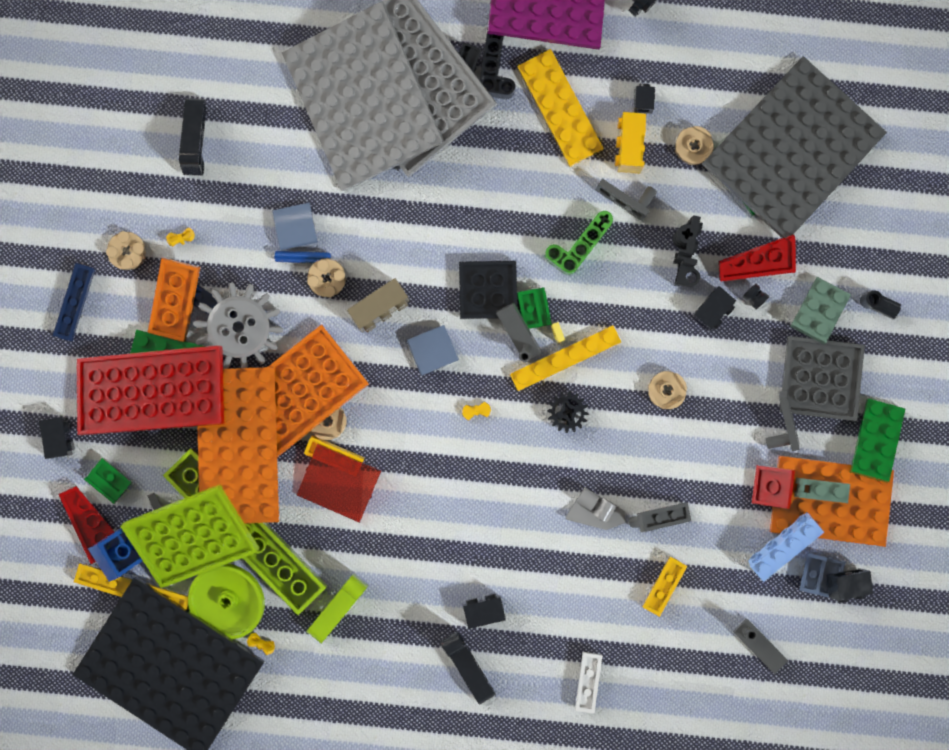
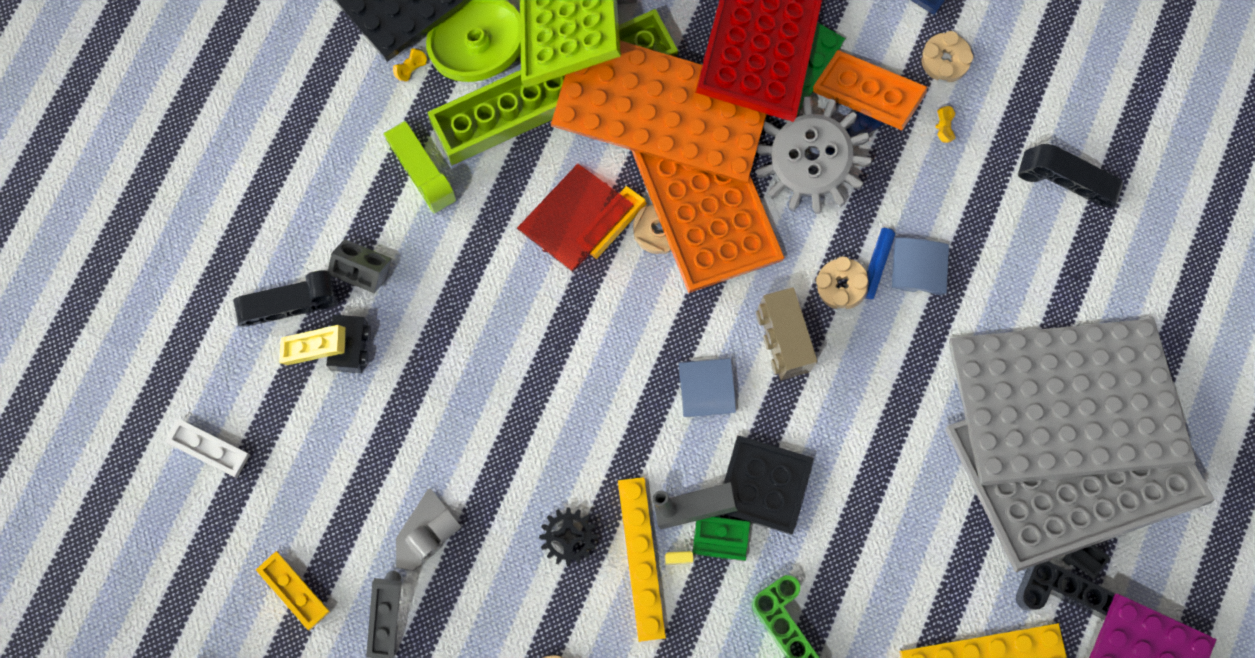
camera: 105 degrees right, 10 degrees down
(426, 624) = (359, 266): none -> dark grey brick
(469, 411) = (608, 428): yellow piece -> none
(495, 634) = (312, 345): none -> light yellow plate

